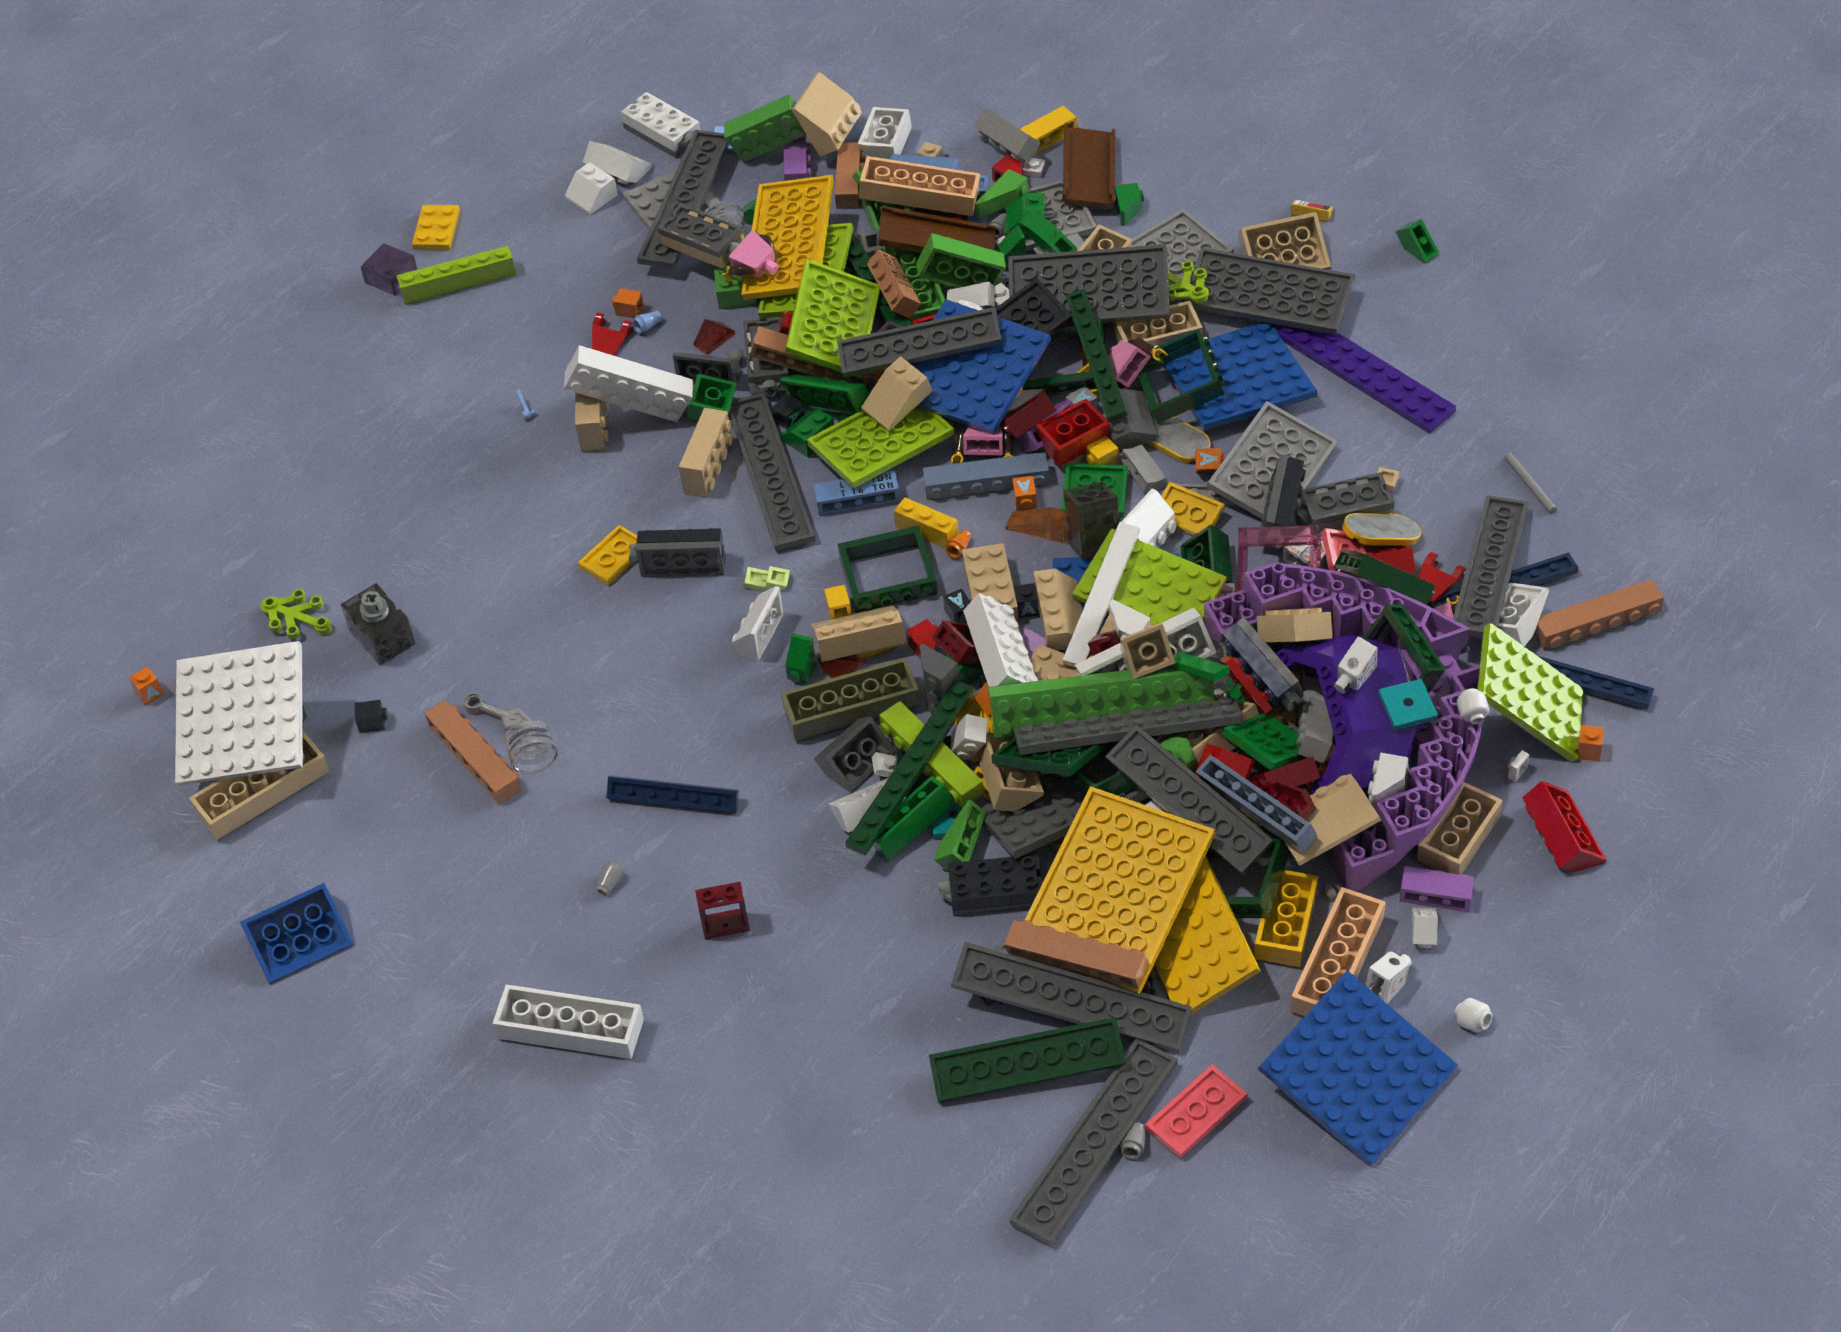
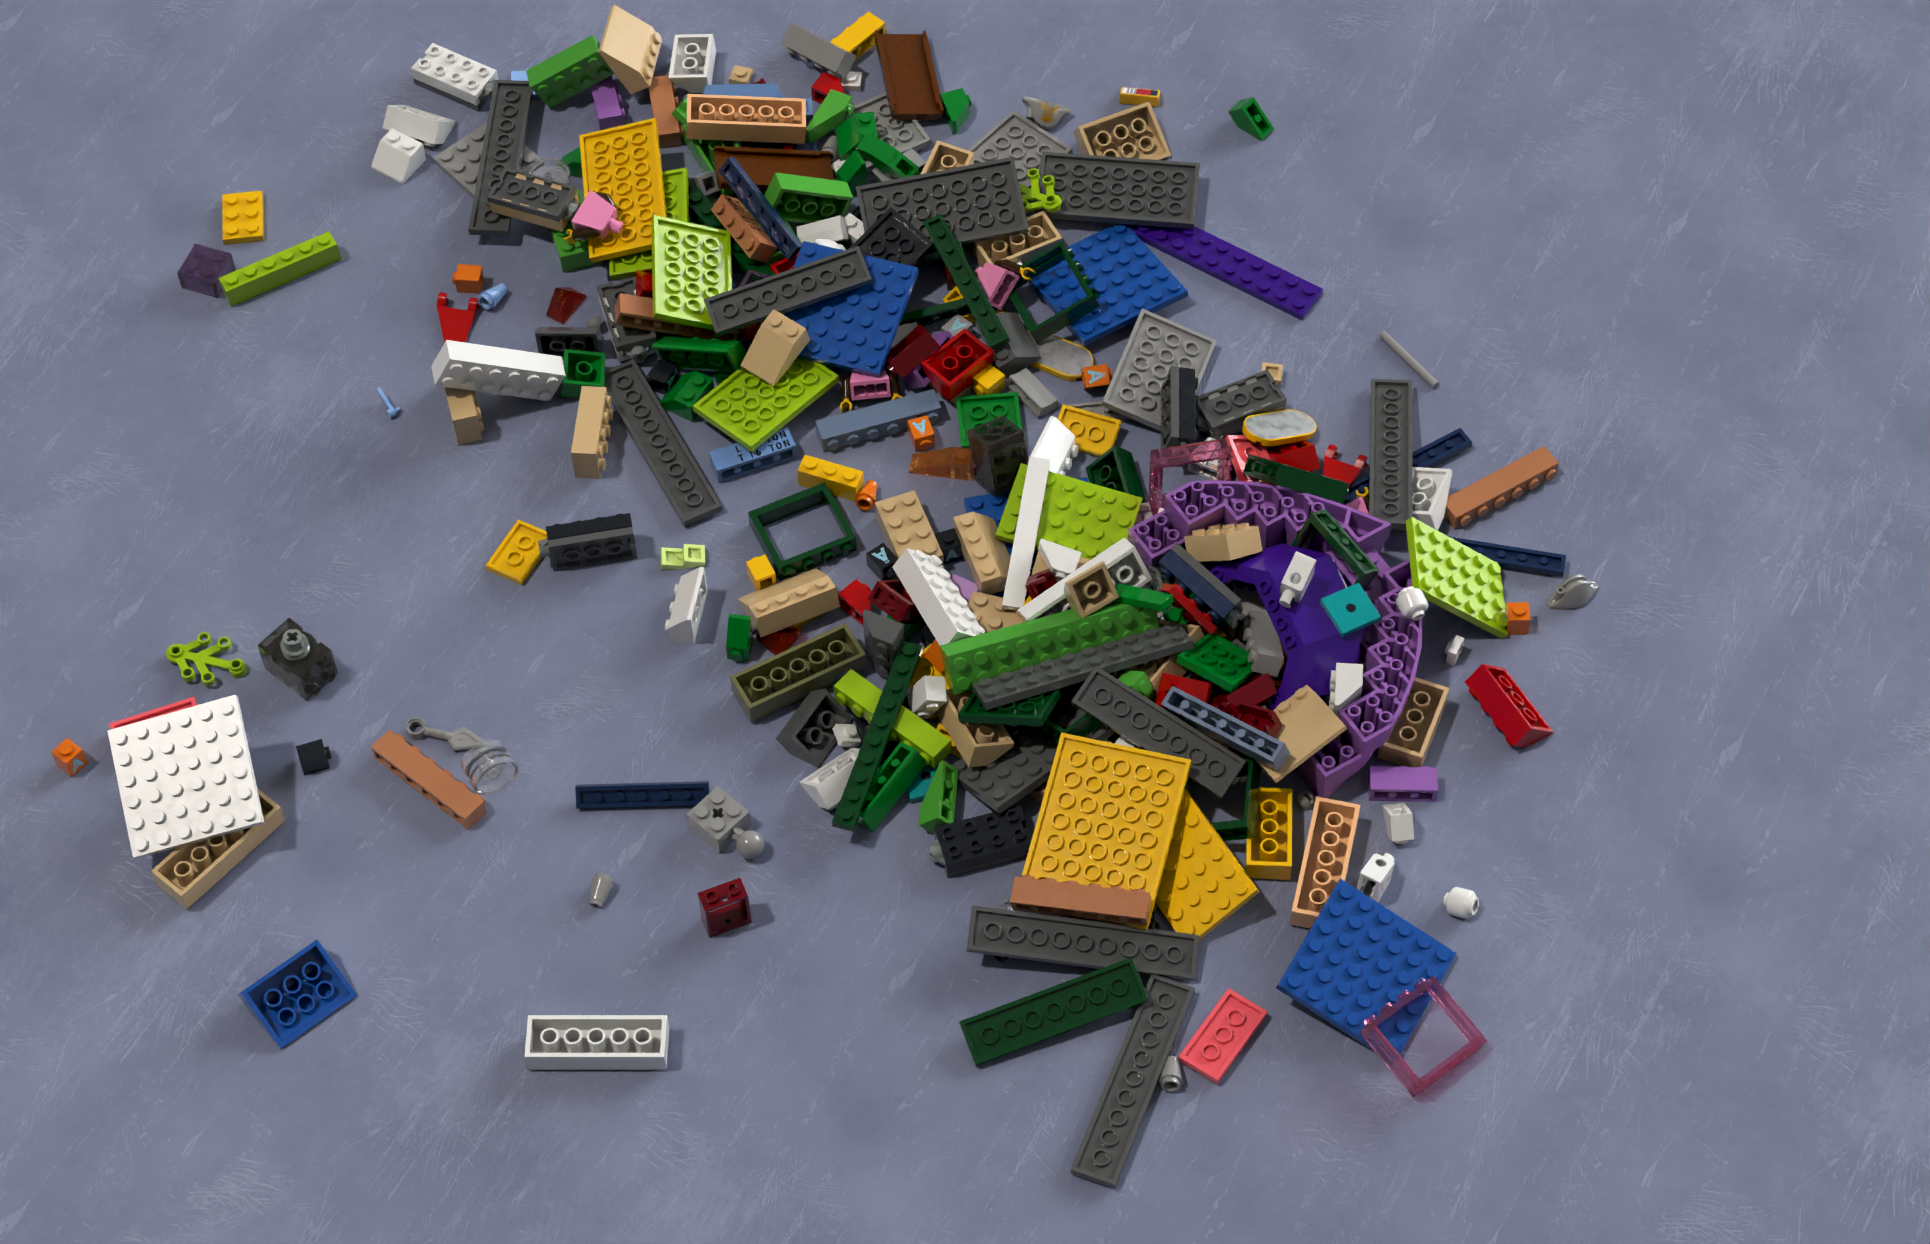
camera: 15 degrees left, 5 degrees up
(744, 830) = (722, 820): none -> light grey brick
(912, 265) = (760, 208): none -> dark blue plate
(1212, 213) = (1044, 113): none -> light grey hat
(1421, 1177) = (1392, 1057): none -> clear pink window
(1654, 726) = (1572, 593): none -> light grey hat

